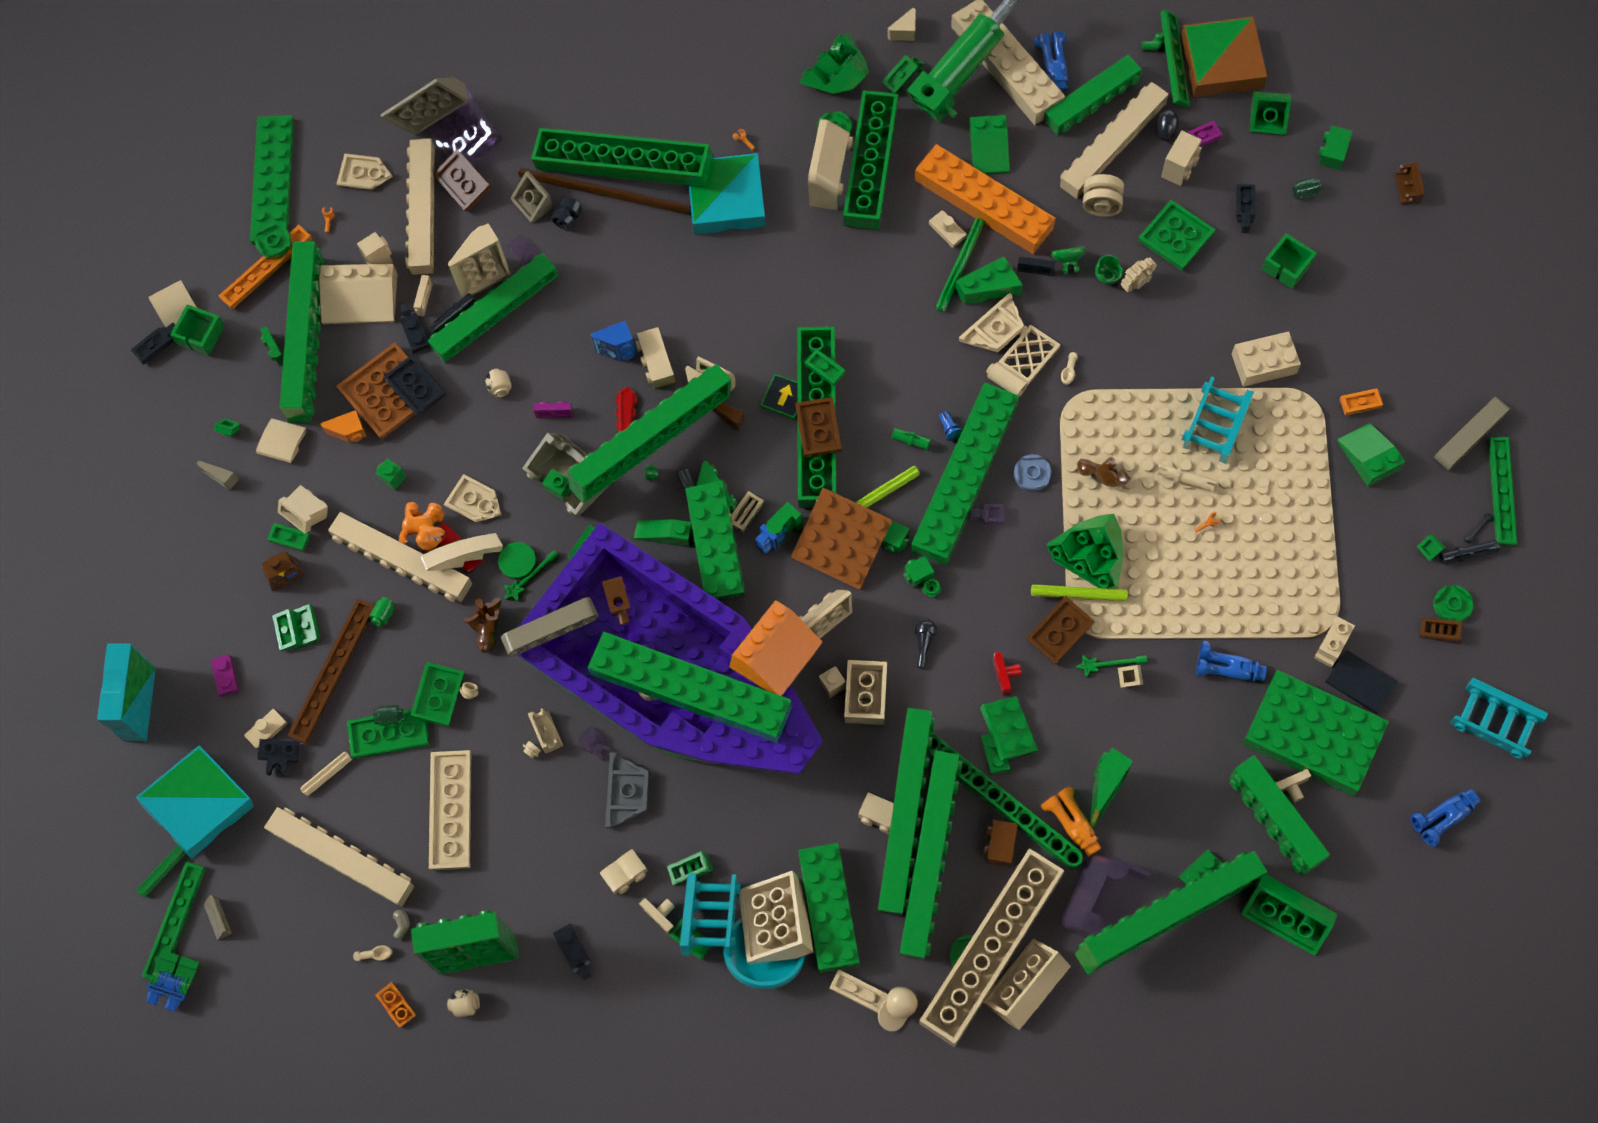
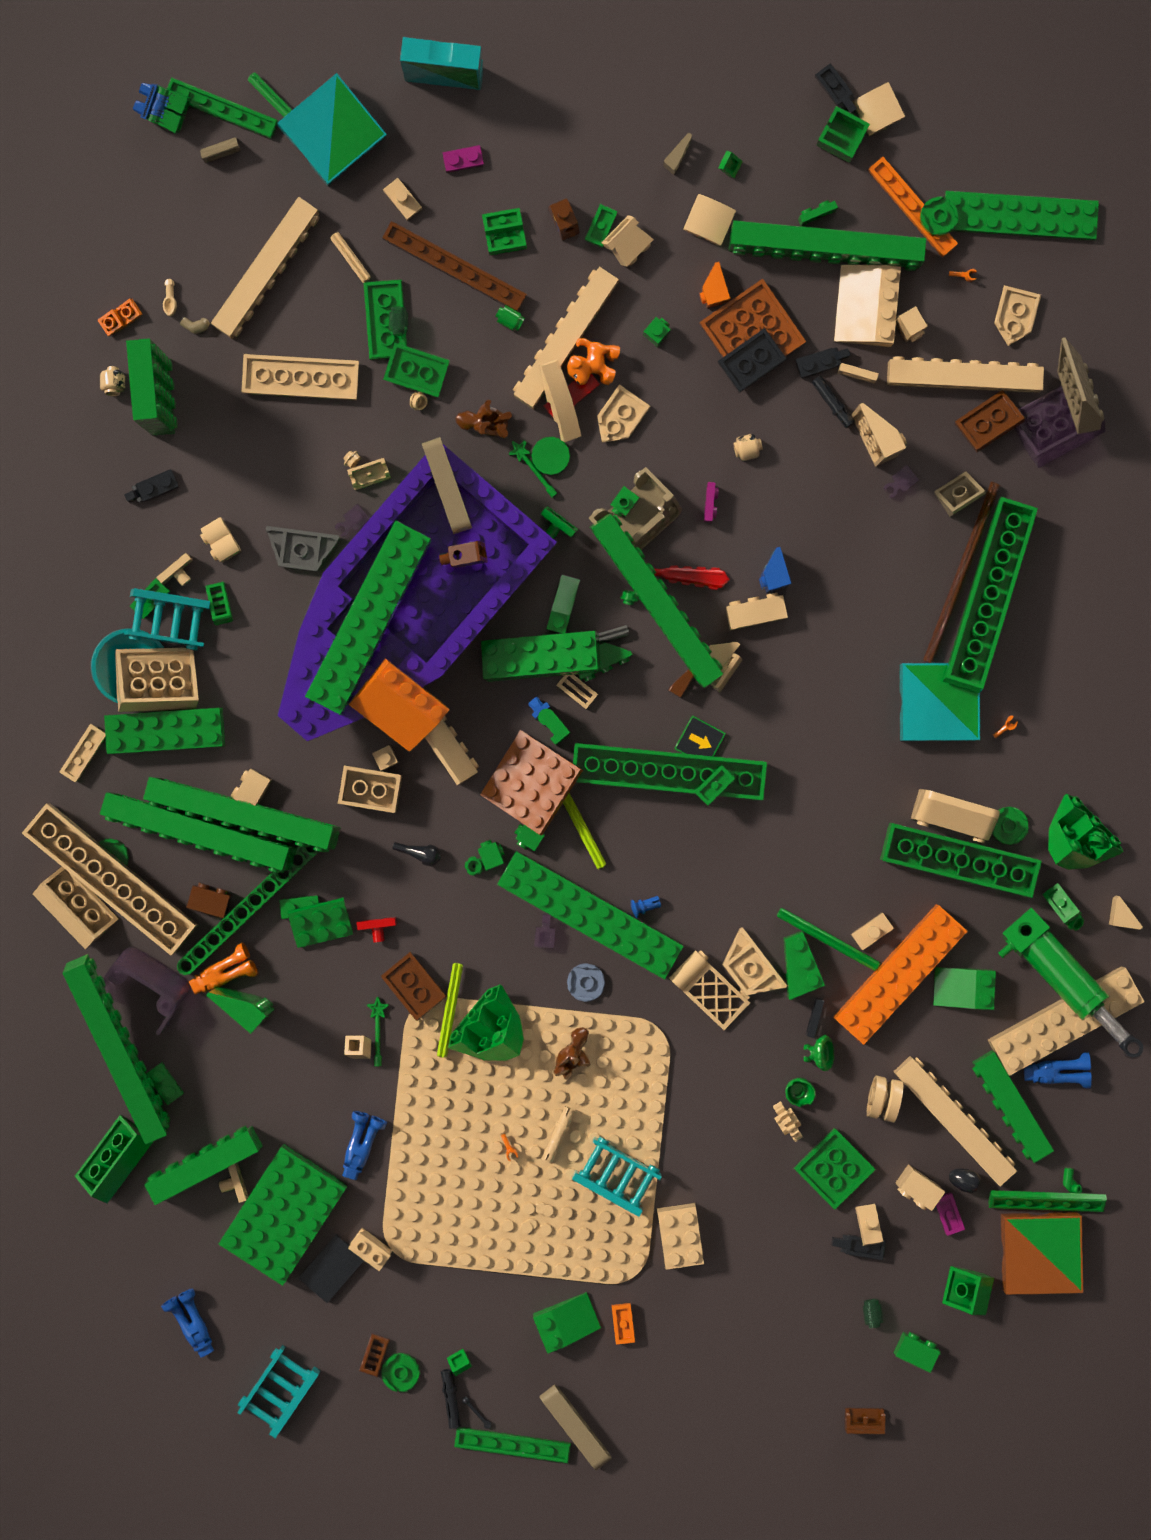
camera: 90 degrees right, 20 degrees up
(278, 754) = (374, 211): black plate -> none
(493, 307) = (834, 446): green brick -> none
(567, 213) = (936, 531): black wheel -> none
(818, 427) = (648, 771): reddish brown plate -> none
(896, 1008) = (66, 784): tan cap -> none
(911, 438) = (635, 865): green pin -> none
(1068, 373) = (690, 1034): tan piece -> none
(1223, 198) = (869, 1224): none -> tan tile
(1289, 261) = (787, 1279): green piece -> none

